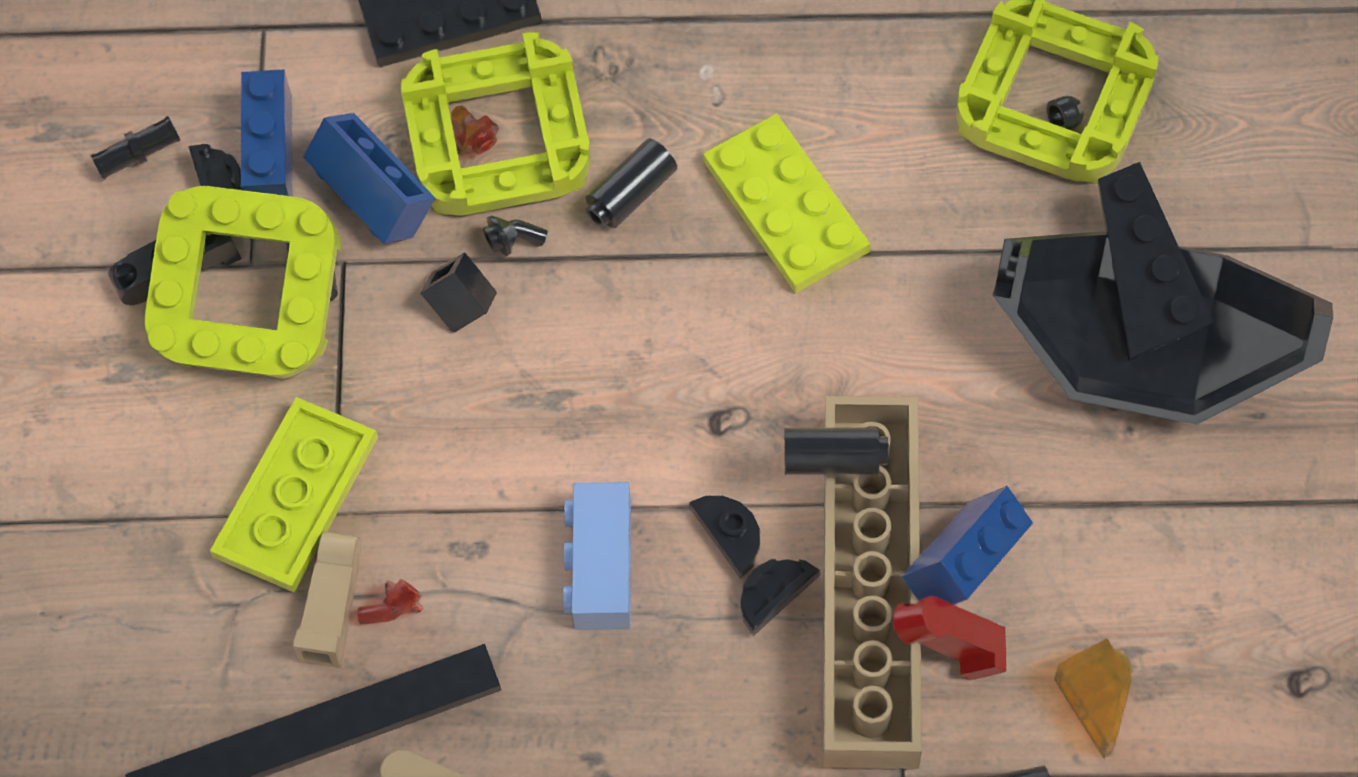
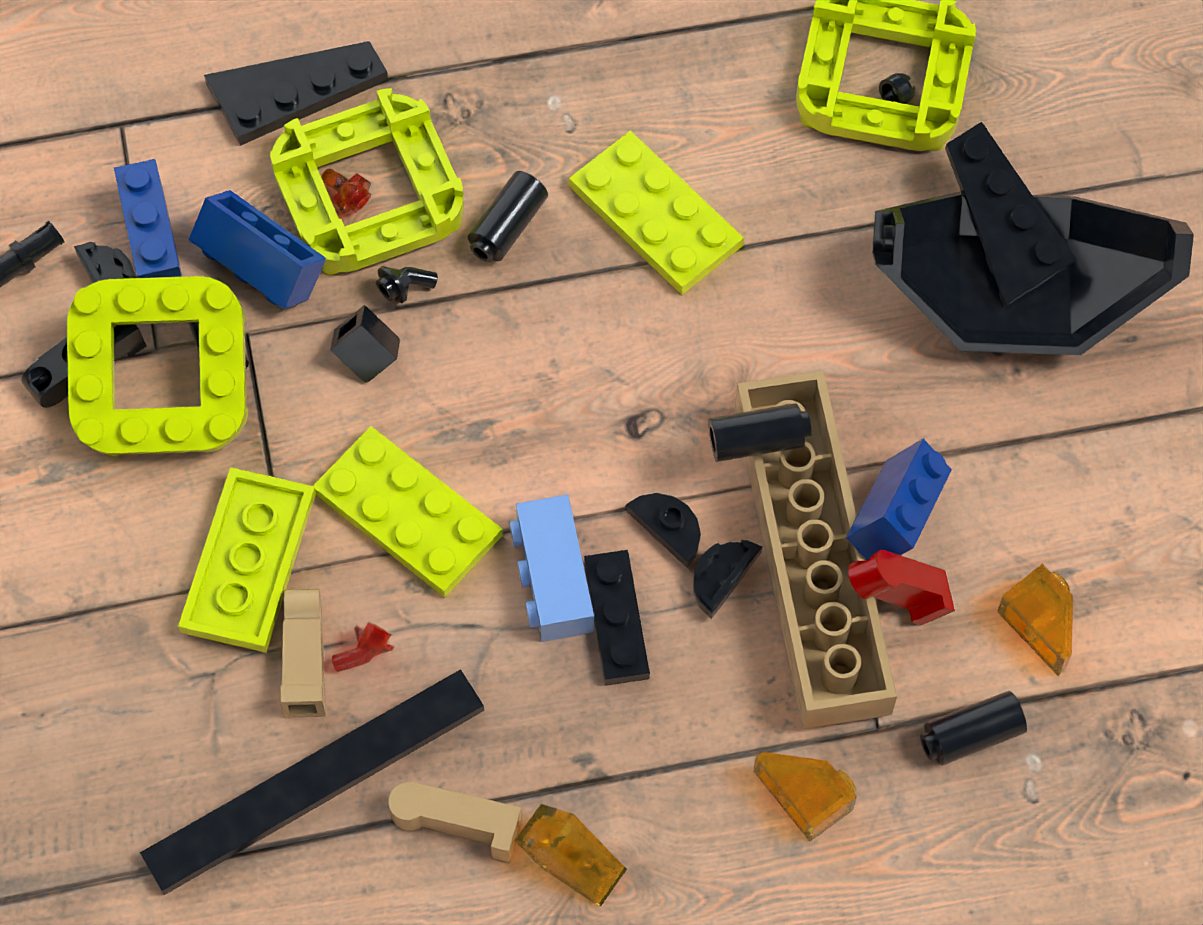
camera: 15 degrees left, 0 degrees up
(467, 472) = (408, 511): none -> neon yellow plate
(655, 618) = (616, 617): none -> black plate

